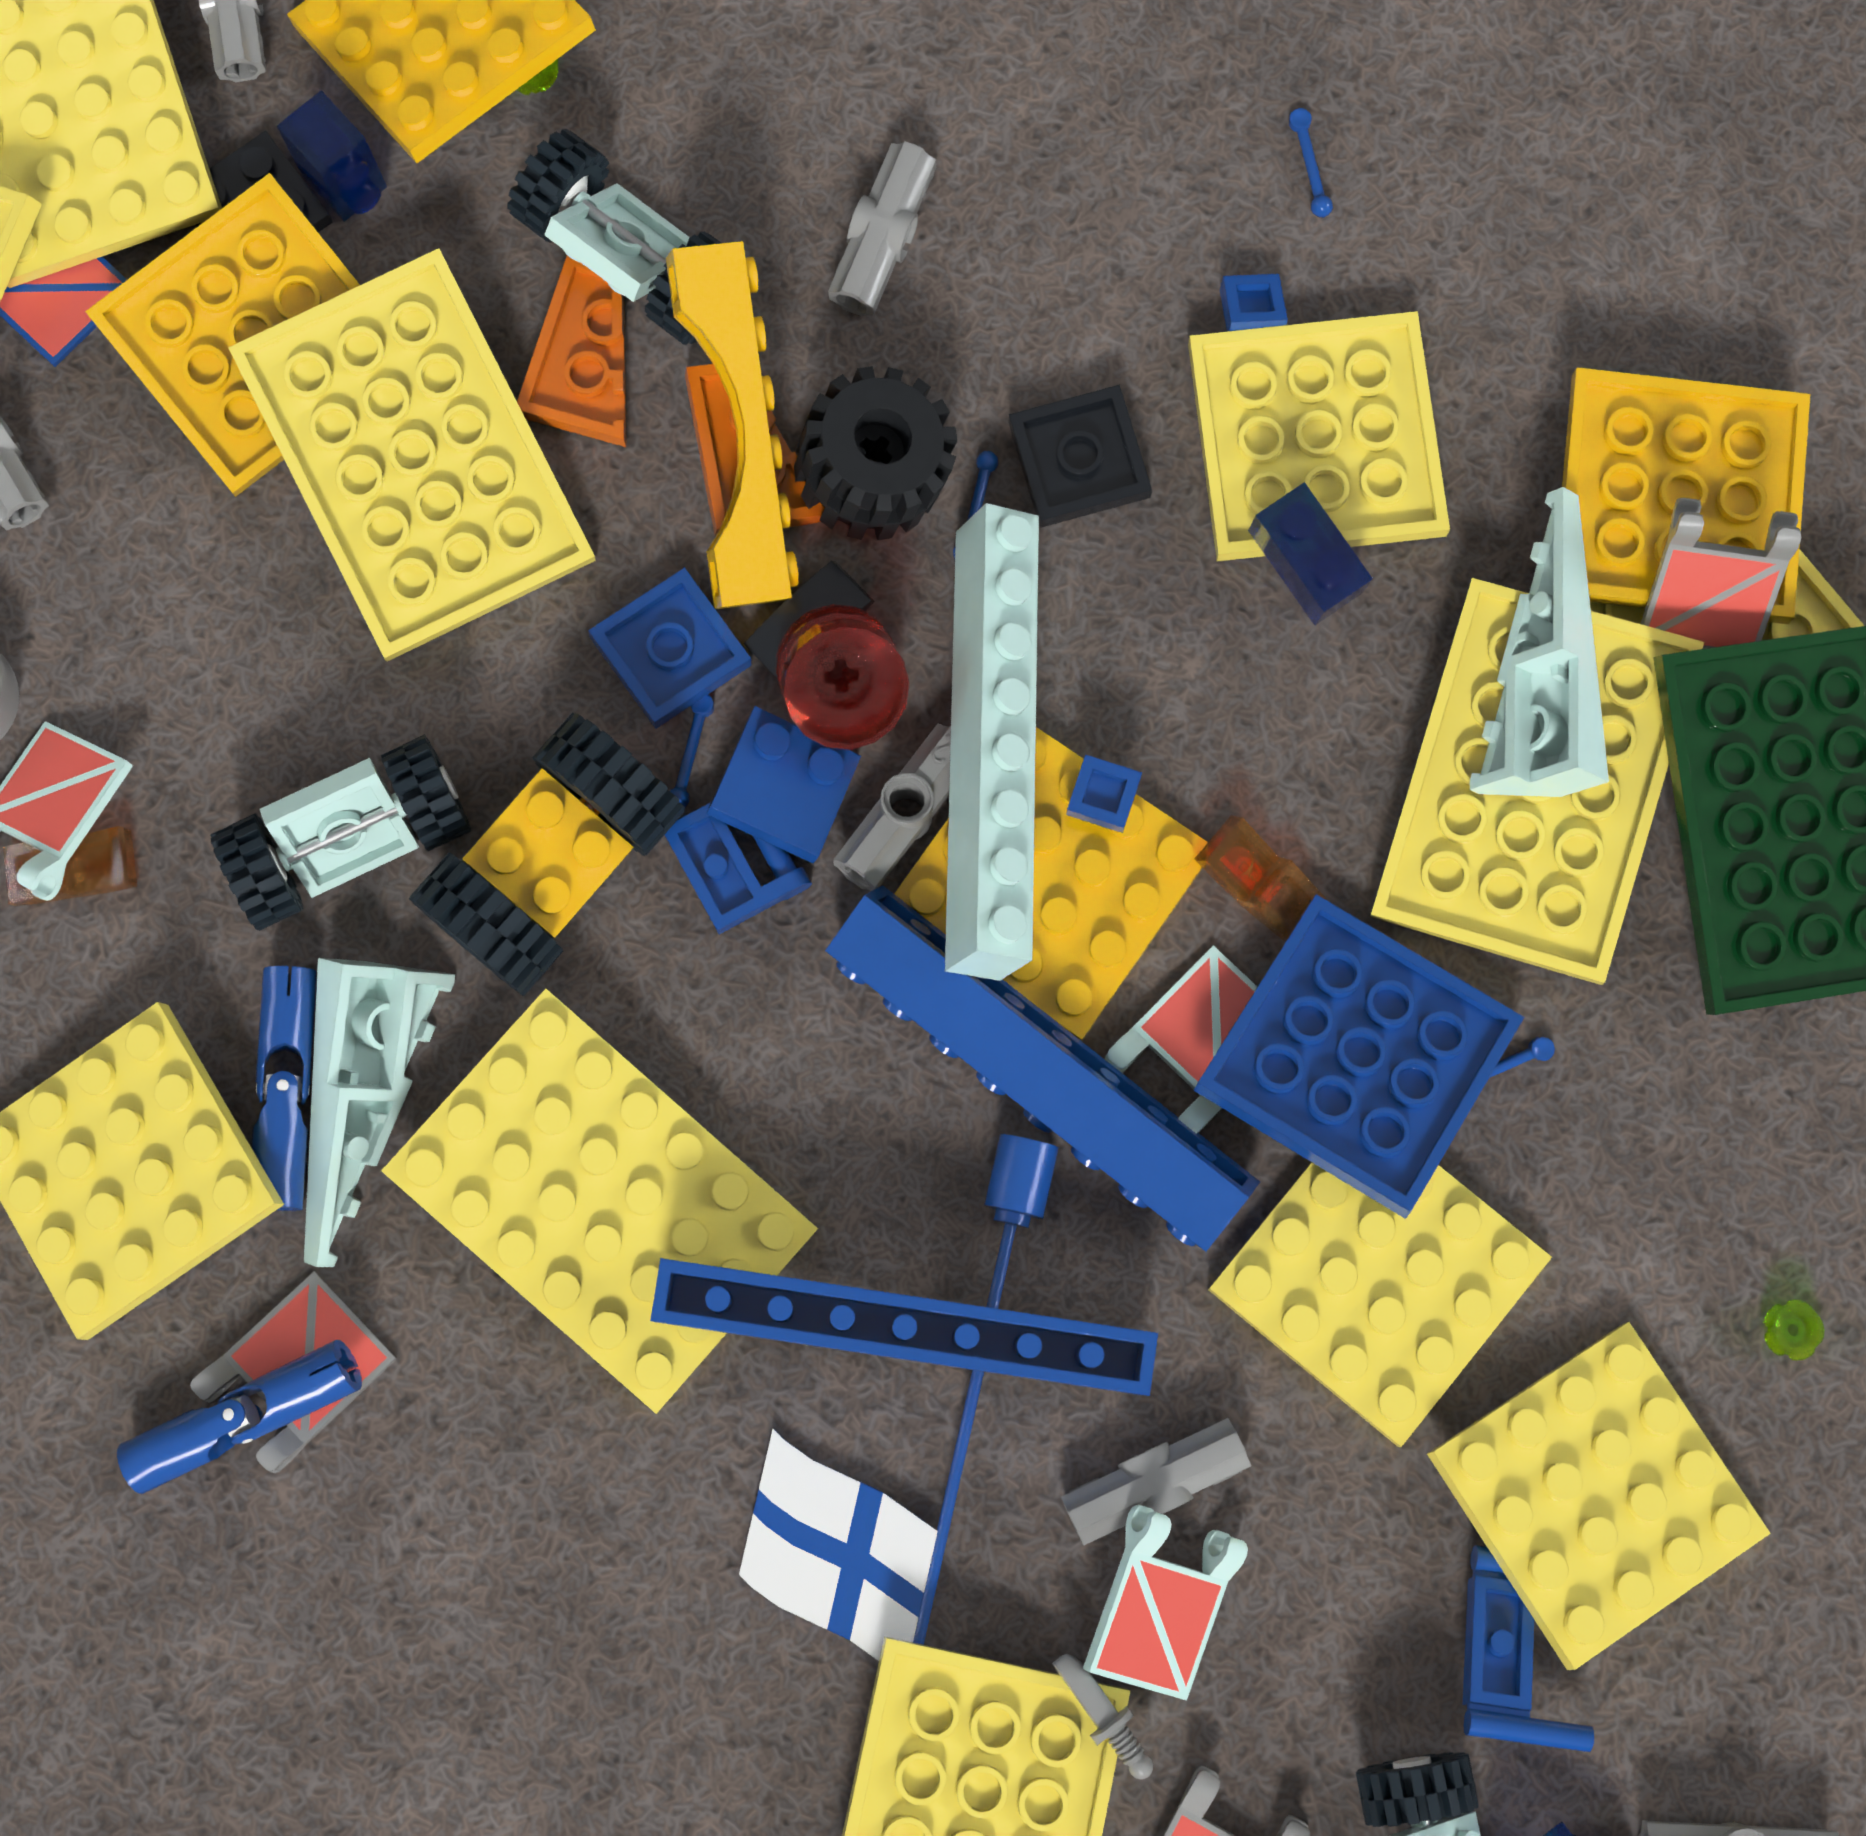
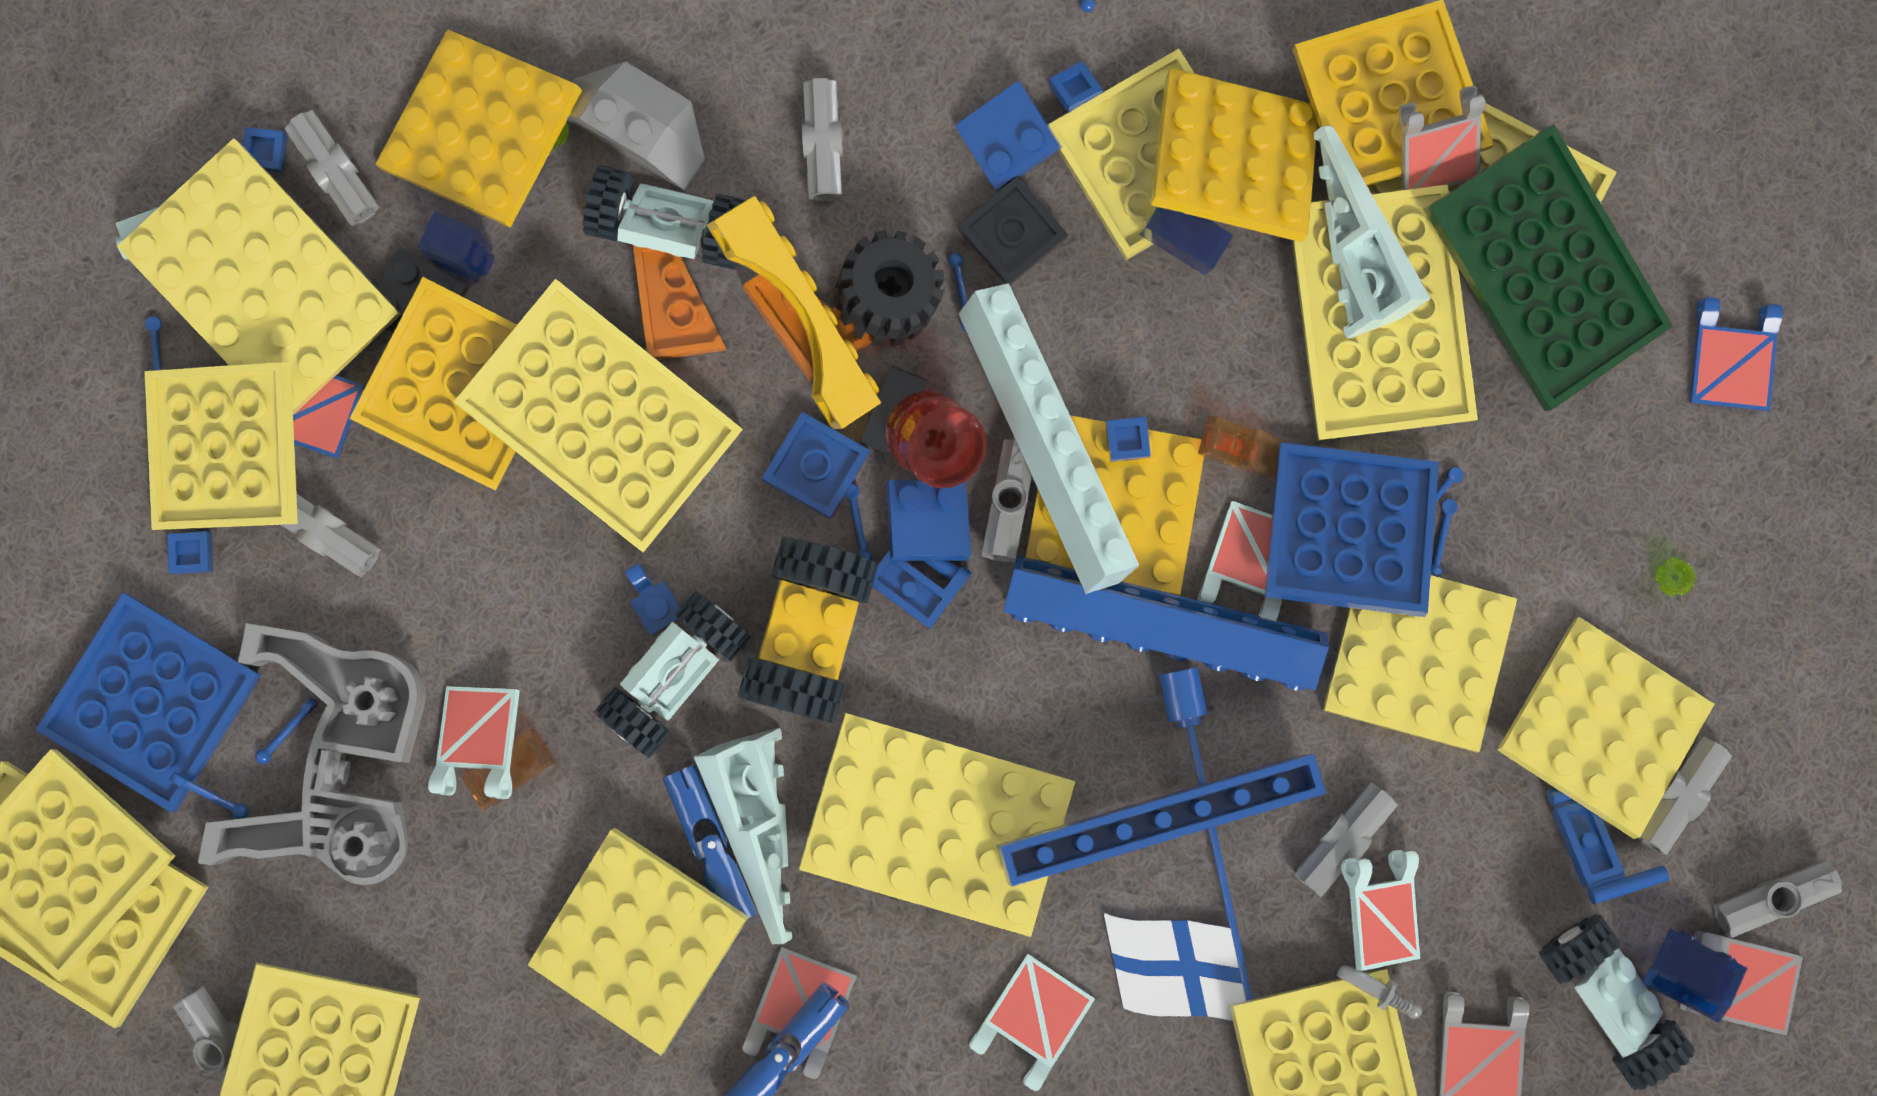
camera: 30 degrees left, 5 degrees up
(369, 729) = (655, 604): none -> blue plate
(615, 1527) = (1037, 1014): none -> coral flag
(656, 105) = (640, 121): none -> light grey wedge
(1133, 327) = (1008, 136): none -> blue plate
(1425, 478) = (1235, 155): none -> yellow plate
(1512, 1091) = (1448, 508): none -> blue hinge
(1669, 1642) = (1686, 794): none -> light grey piece

